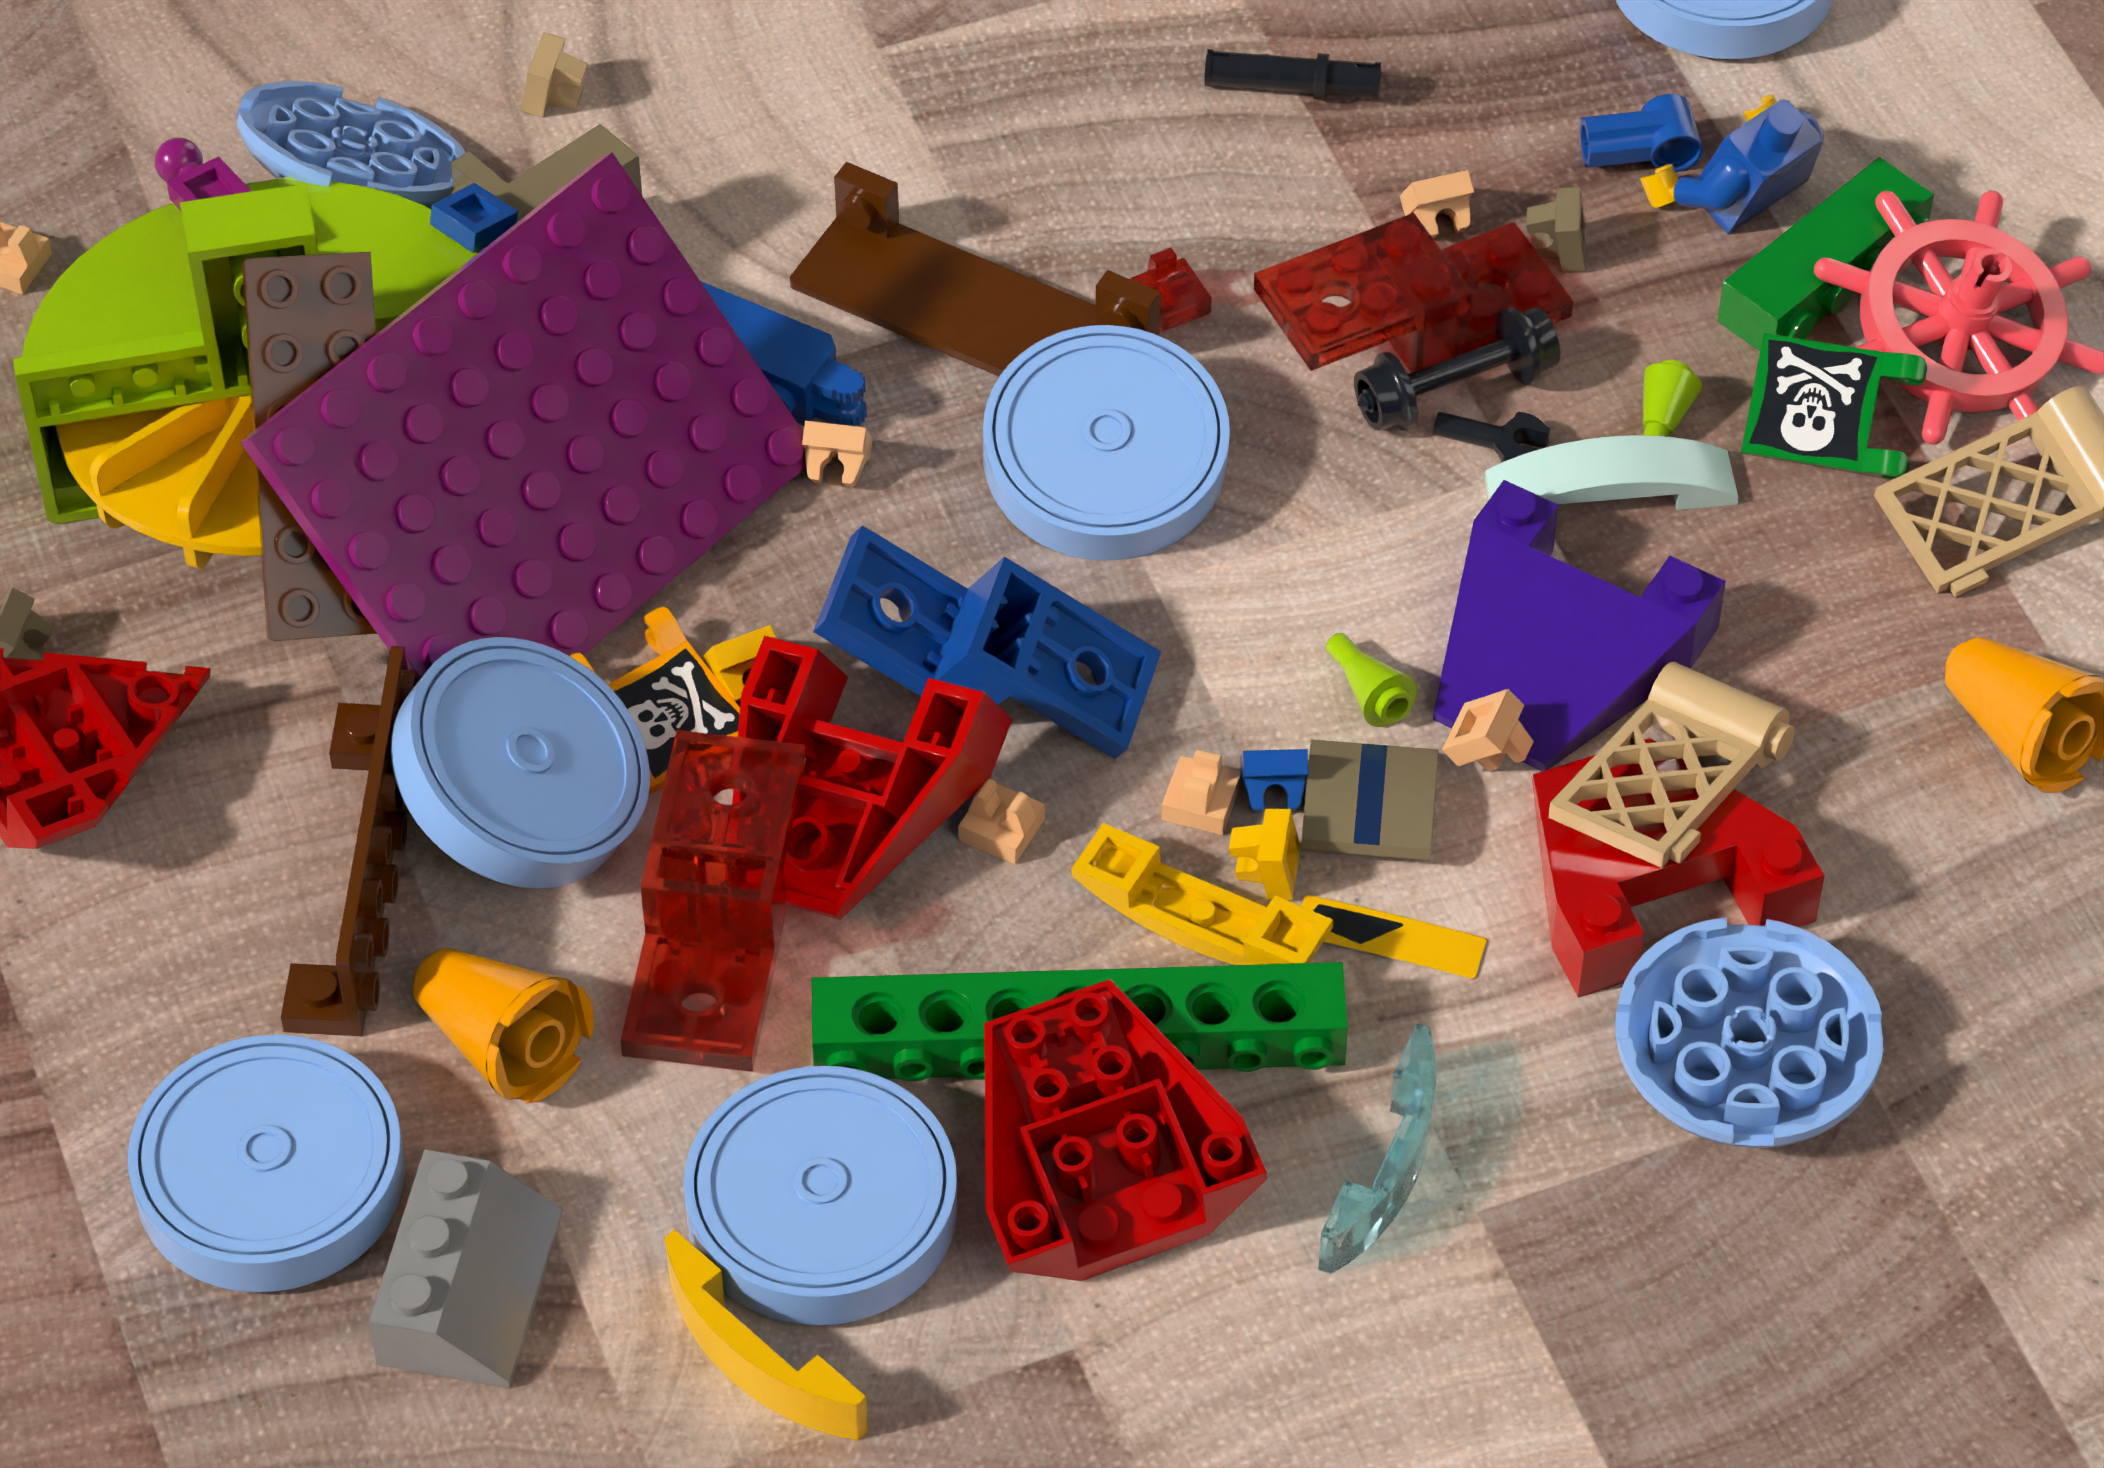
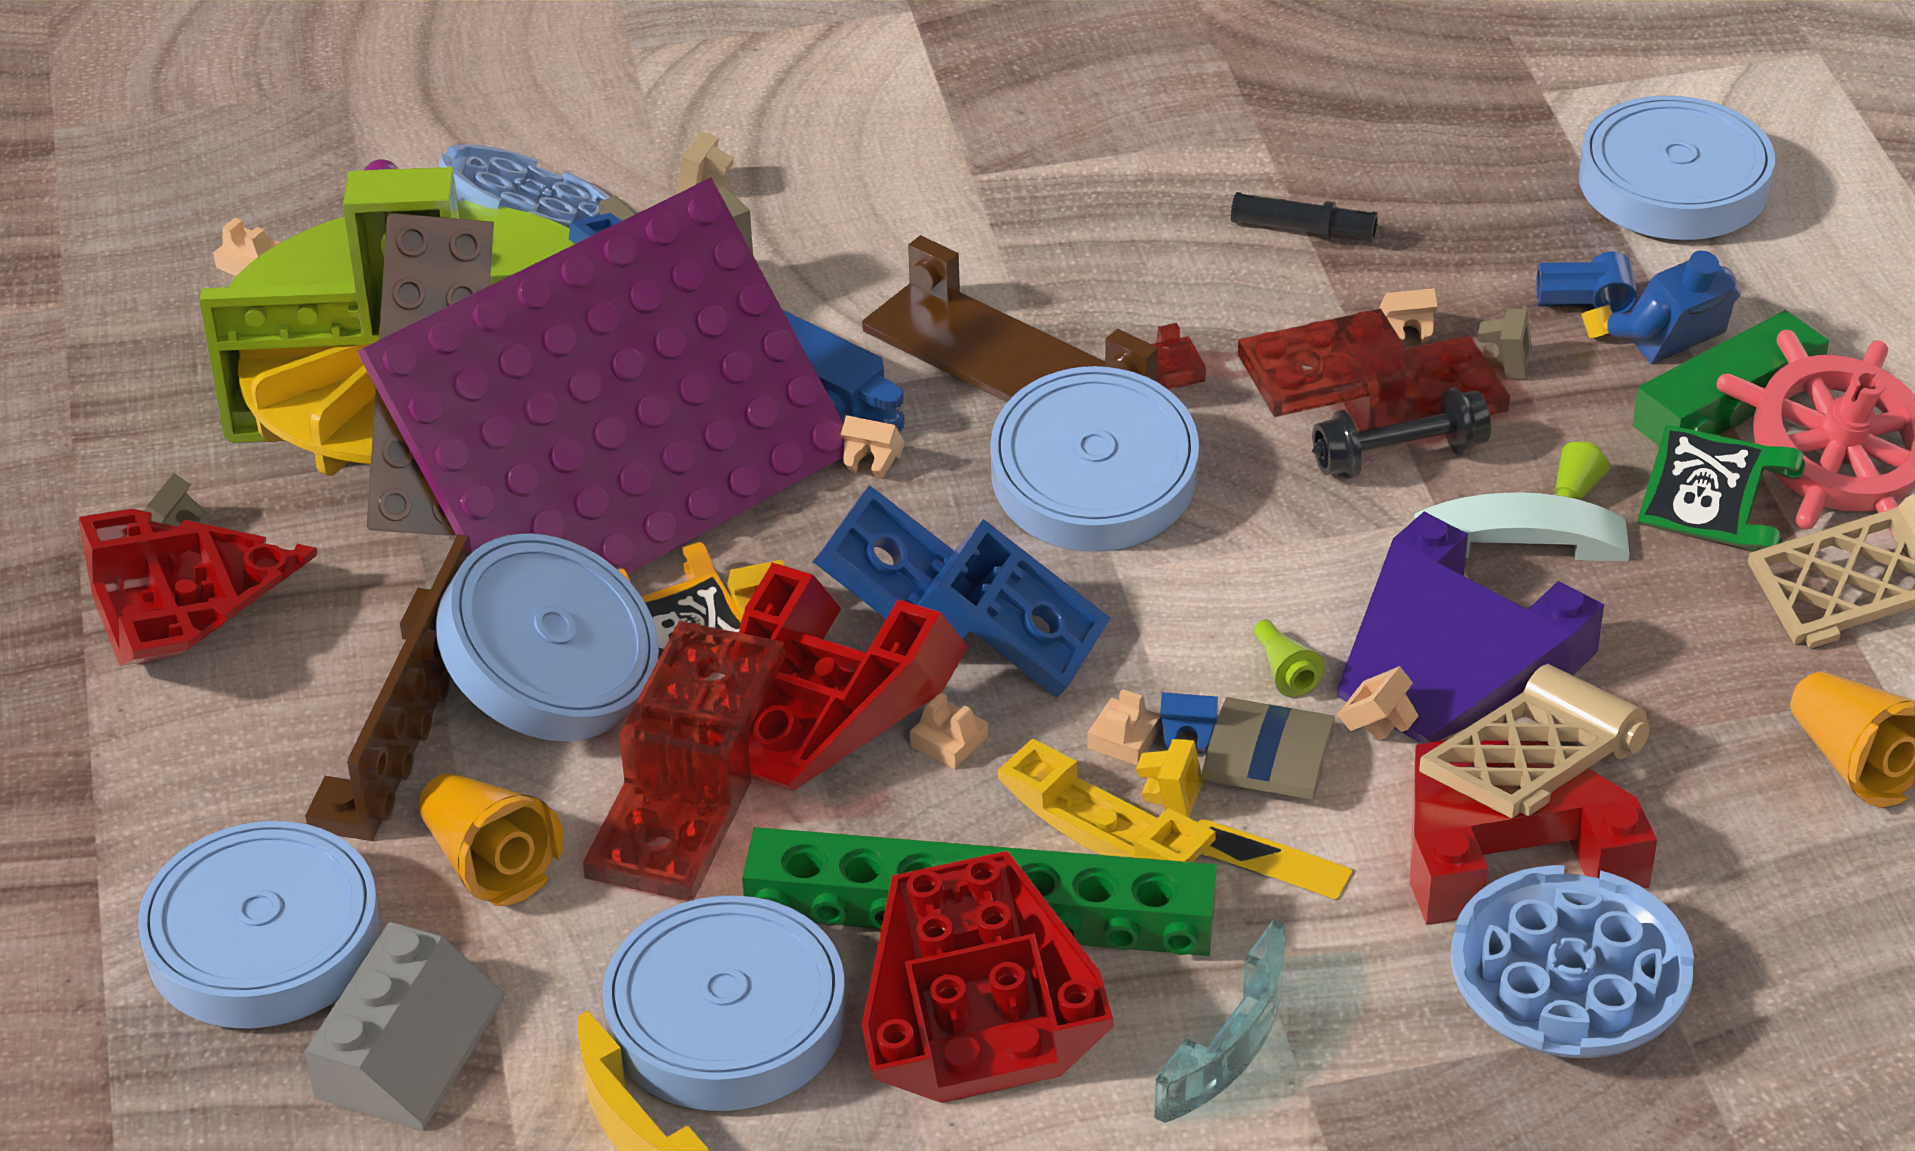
camera: 10 degrees right, 10 degrees down
(1502, 439) = (1444, 489): black bar -> none

